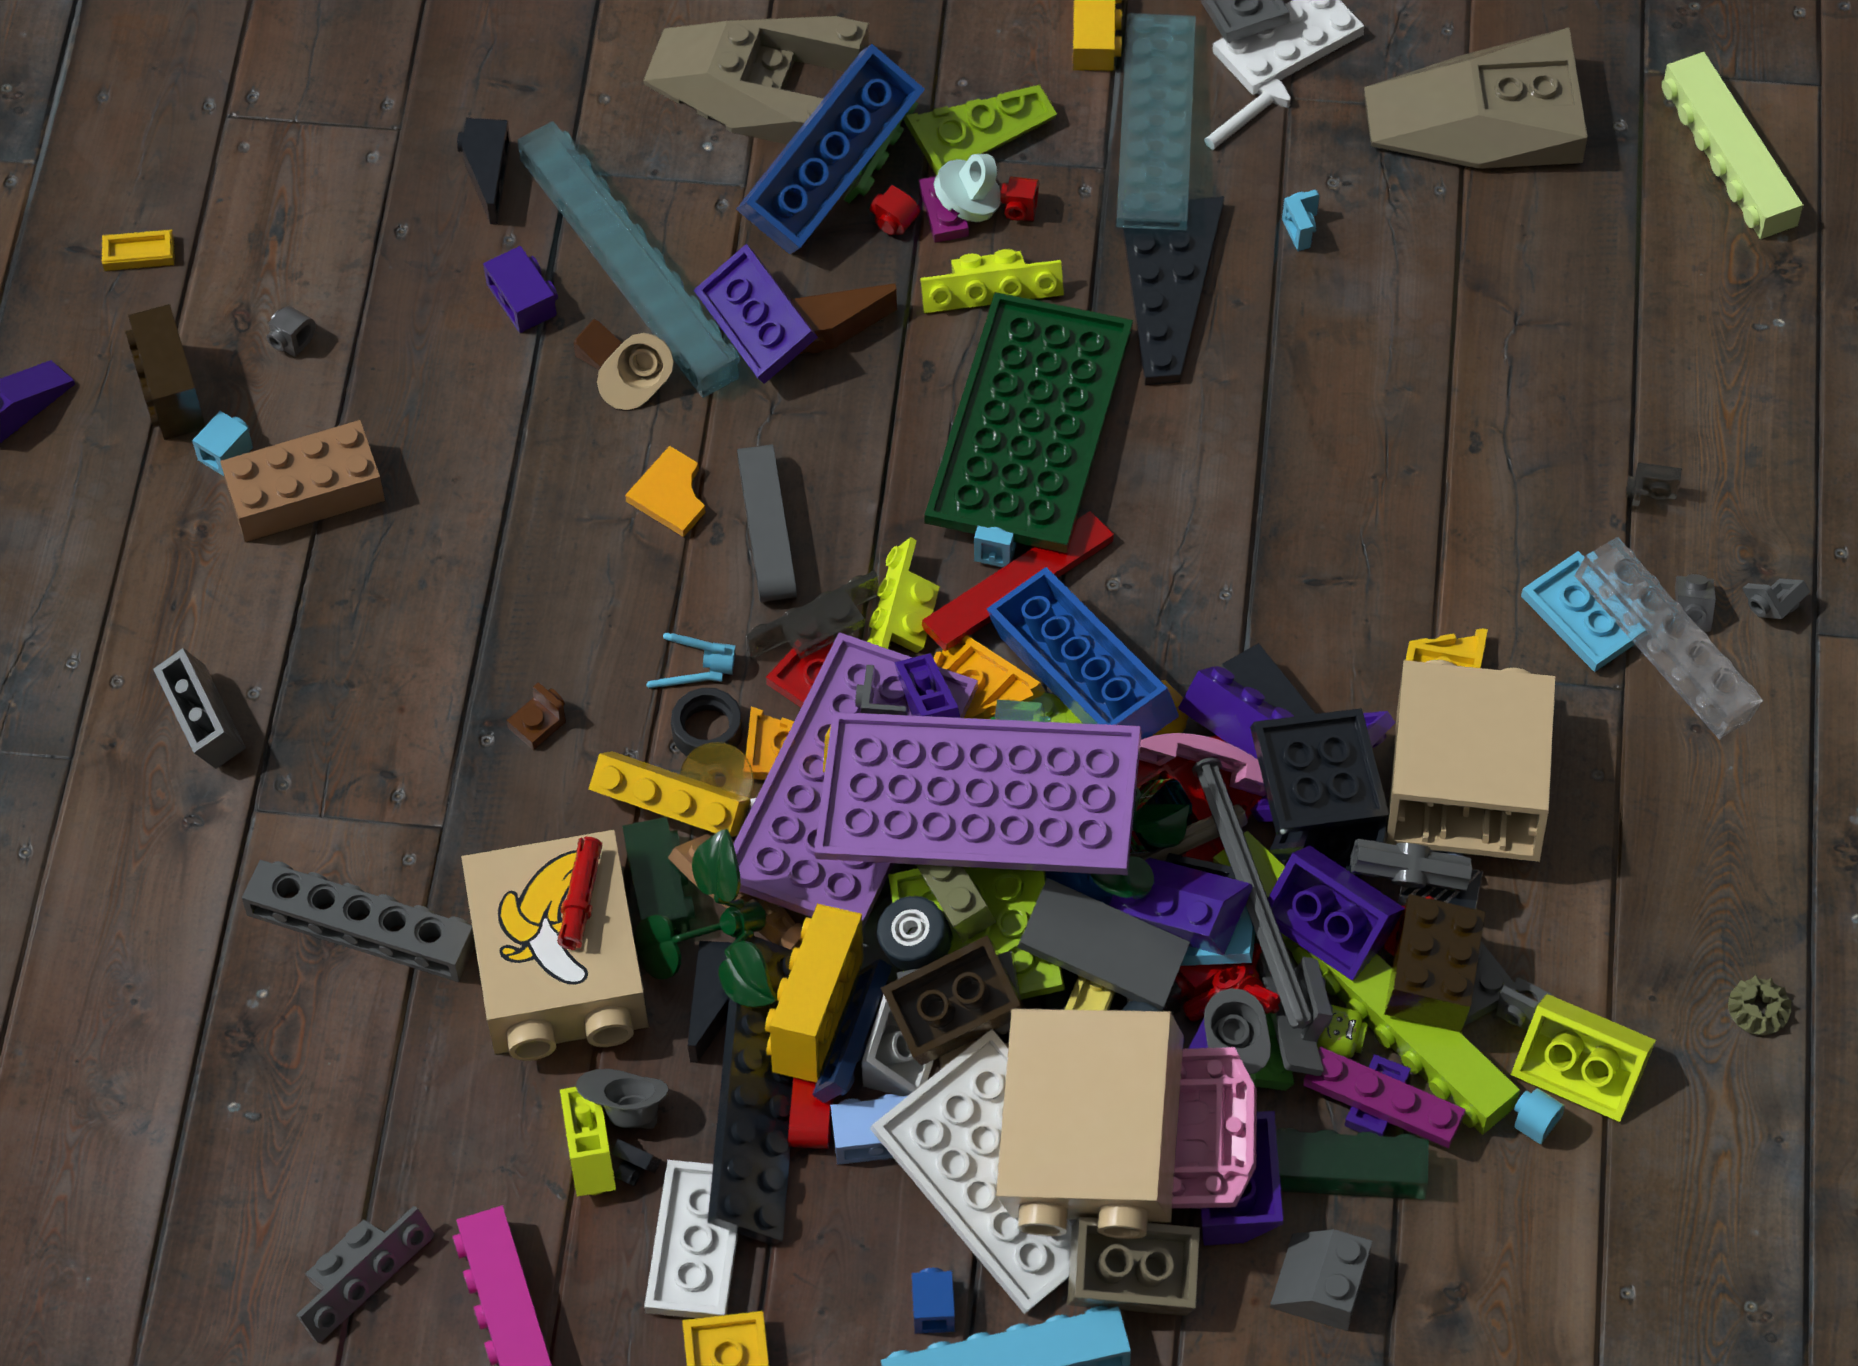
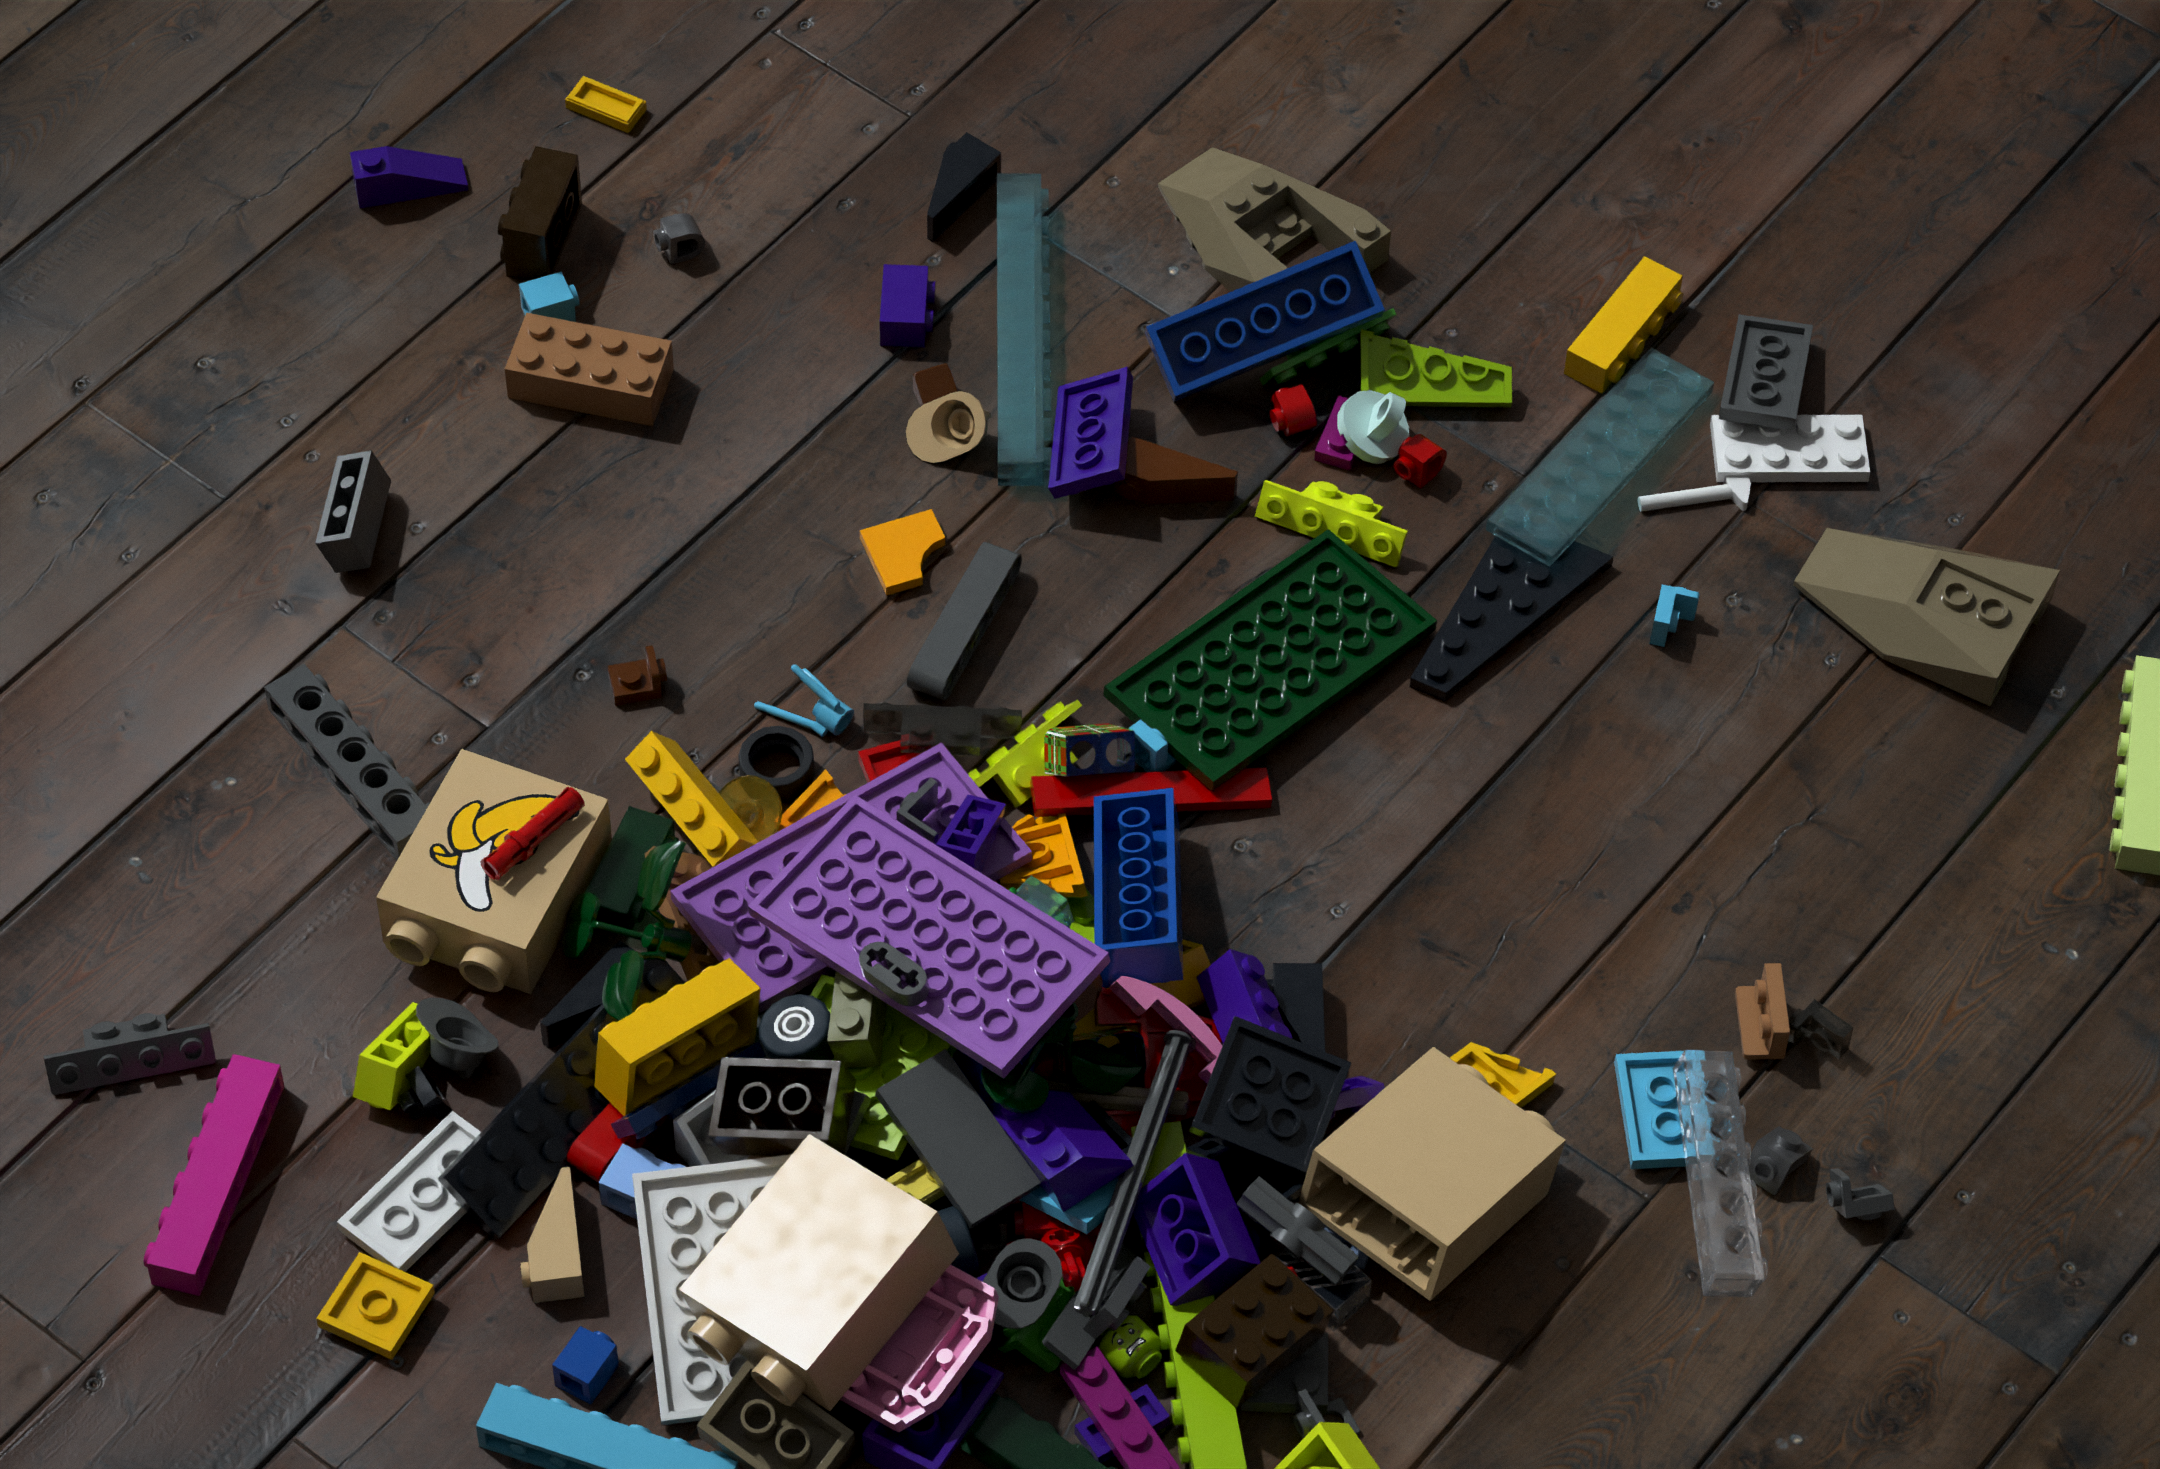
camera: 30 degrees right, 5 degrees down
(842, 1229) = (554, 1248): none -> tan slope
(932, 577) = (1060, 740): none -> piece
(982, 840) = (889, 980): none -> dark grey beam
(1607, 495) = (1763, 1016): none -> medium nougat bracket

